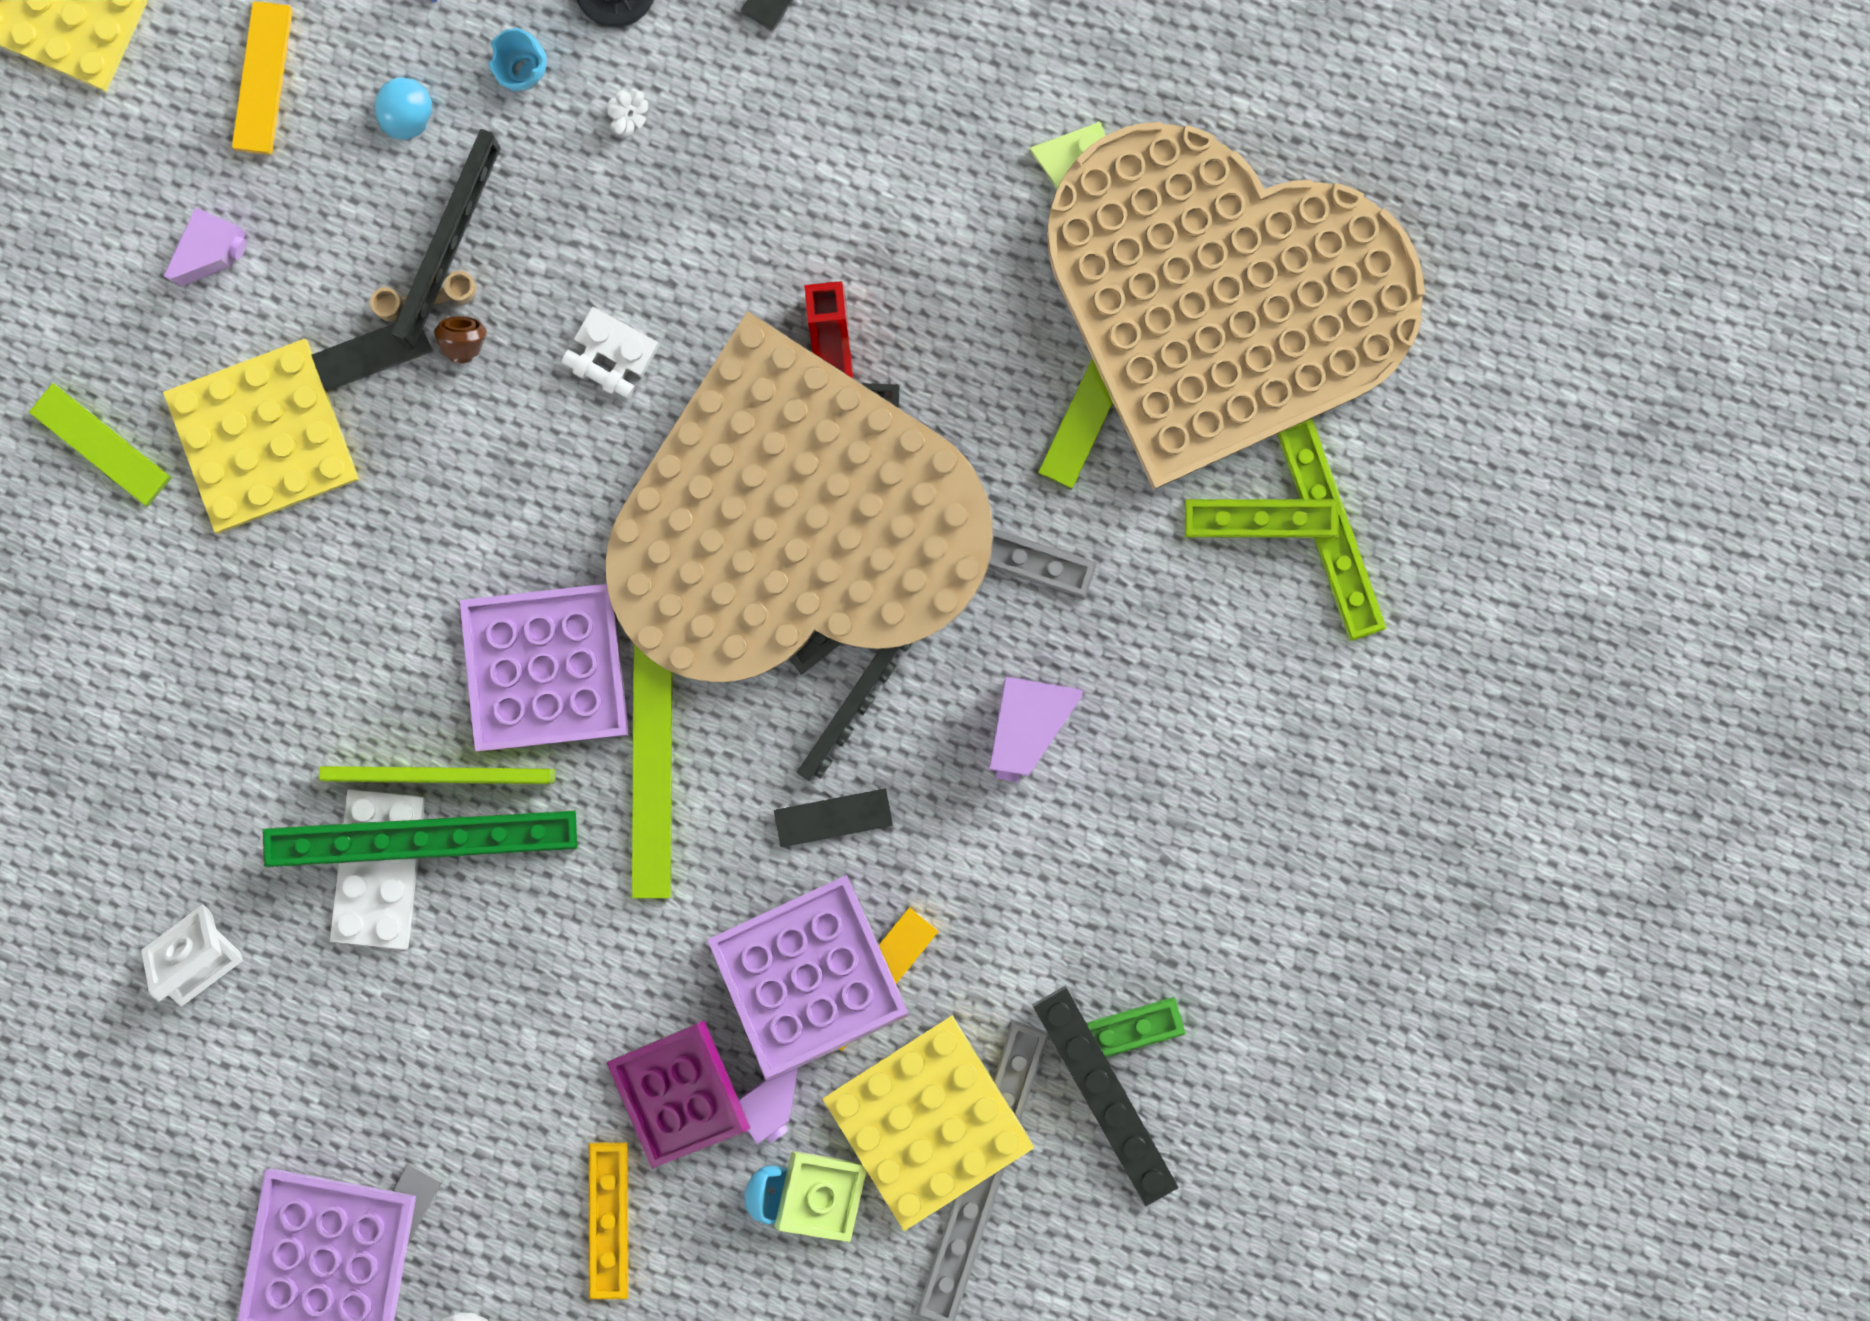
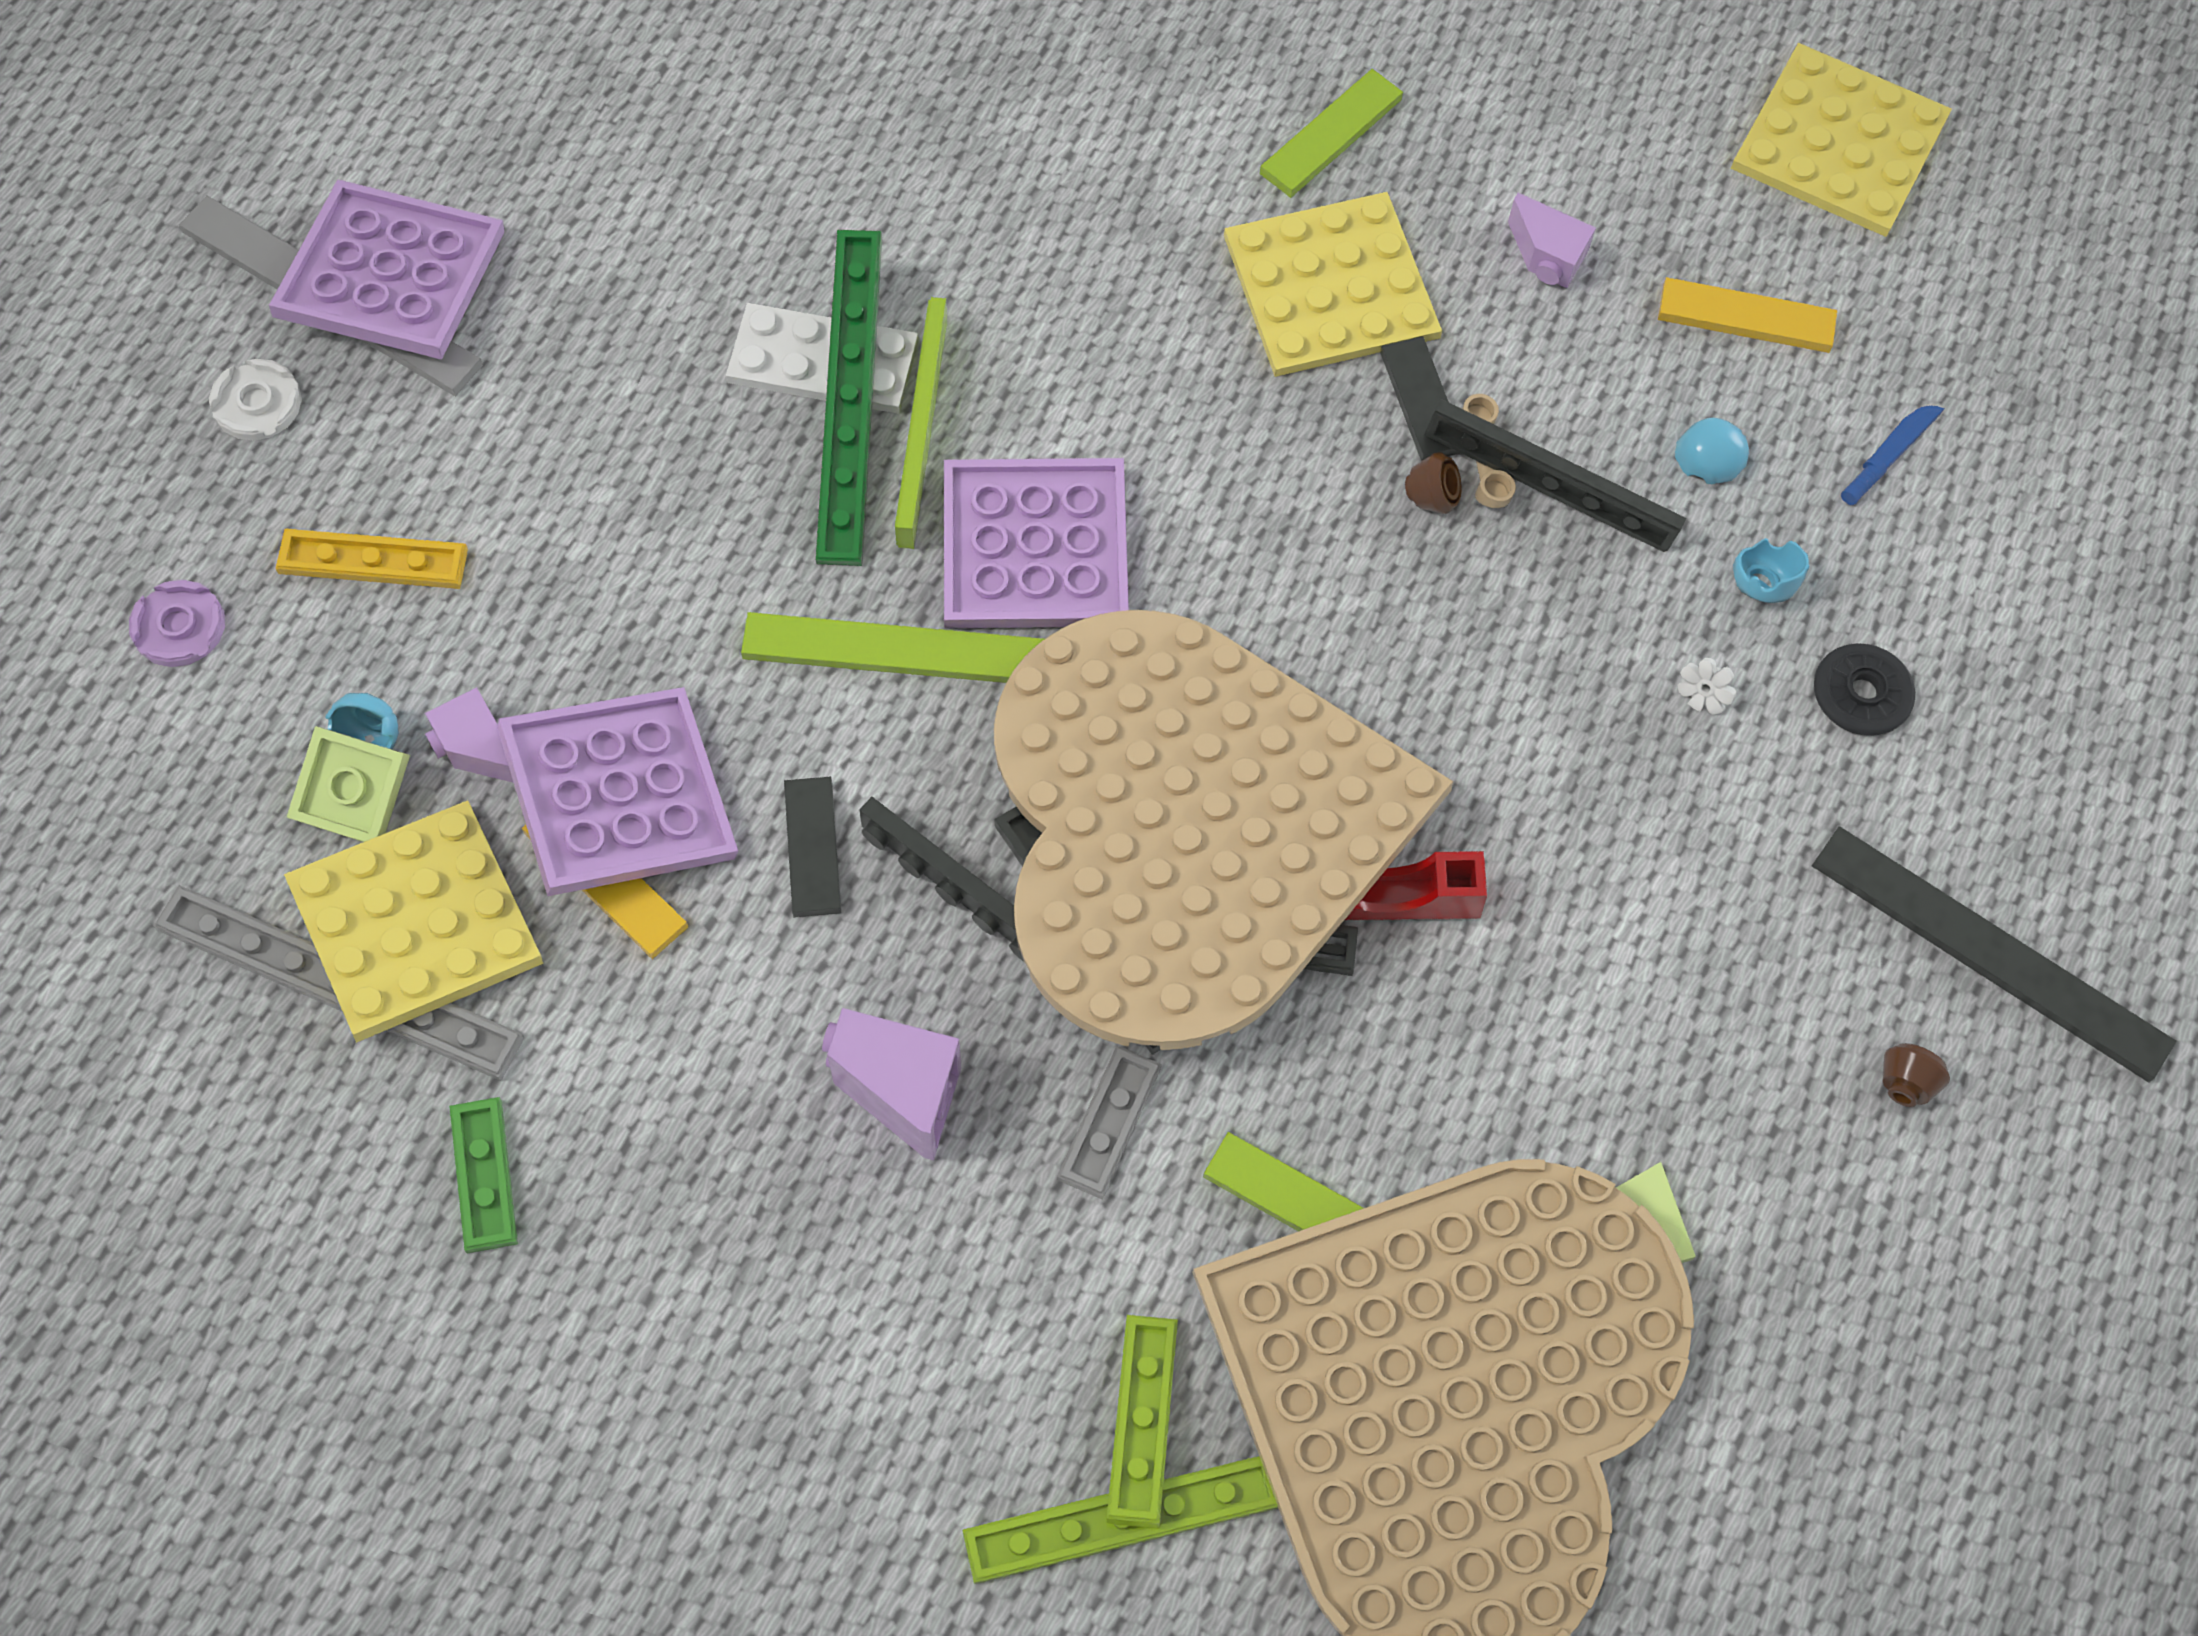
camera: 90 degrees right, 20 degrees down
(188, 958) = (748, 165): white bracket -> none
(617, 343) = (1421, 654): white plate -> none
(678, 1095) = (501, 634): magenta plate -> none
(1105, 1096) = (402, 1137): pearl dark grey plate -> none

